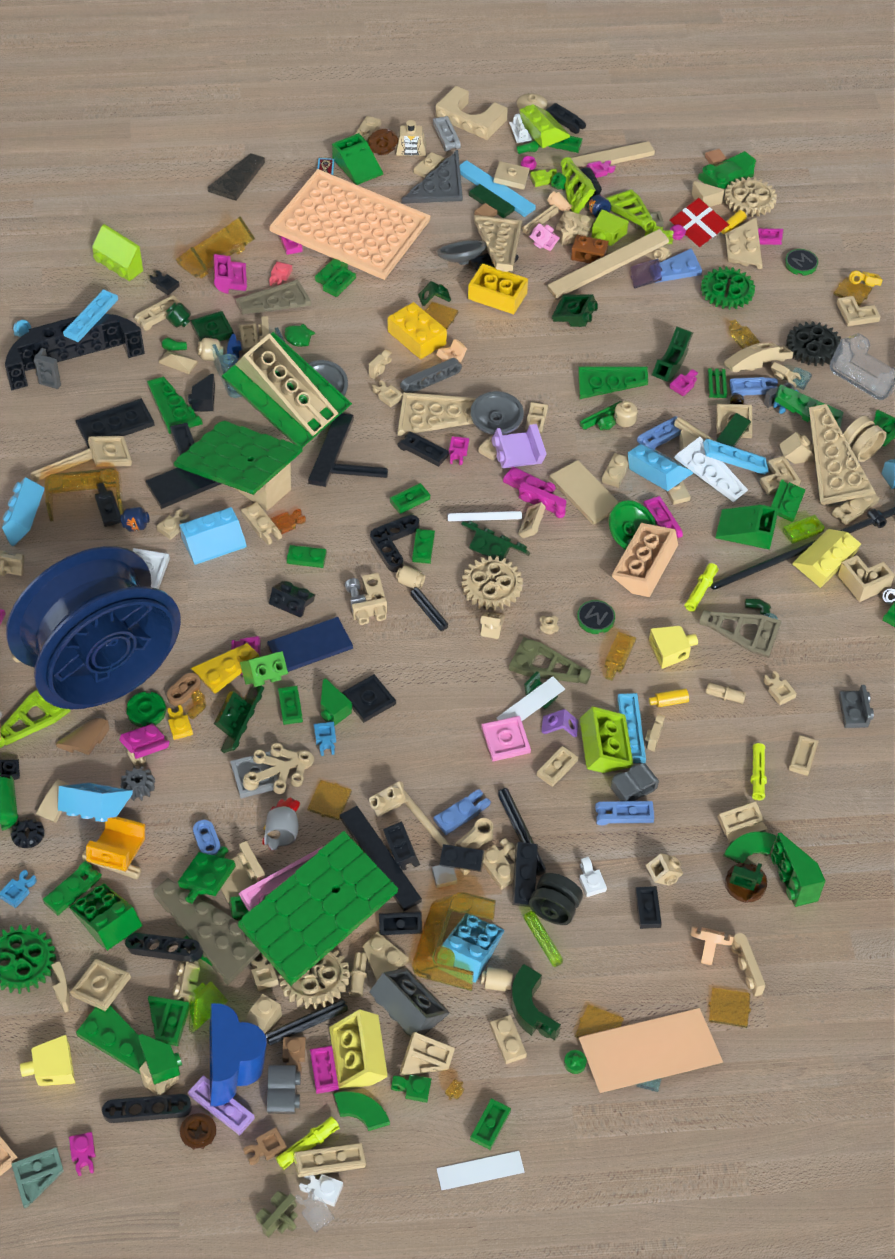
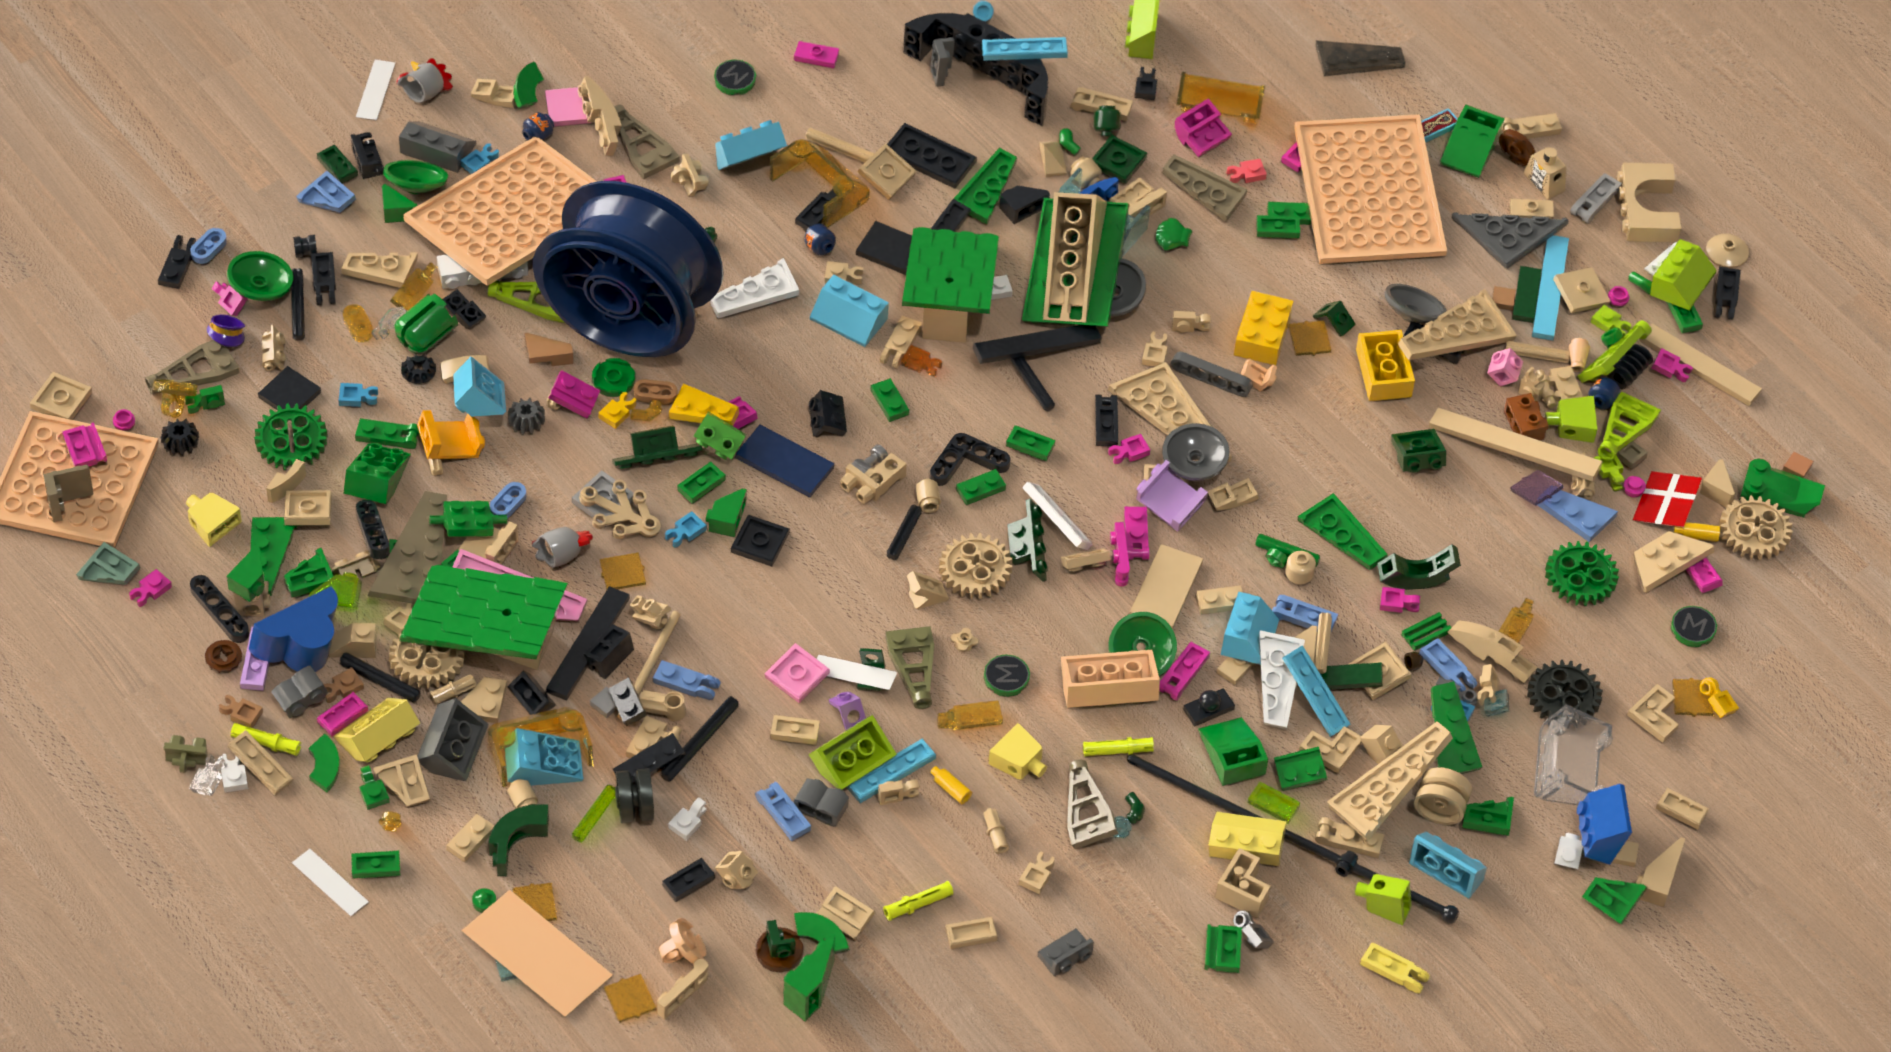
camera: 55 degrees right, 0 degrees up
(700, 522) = (1208, 706): none -> black tile

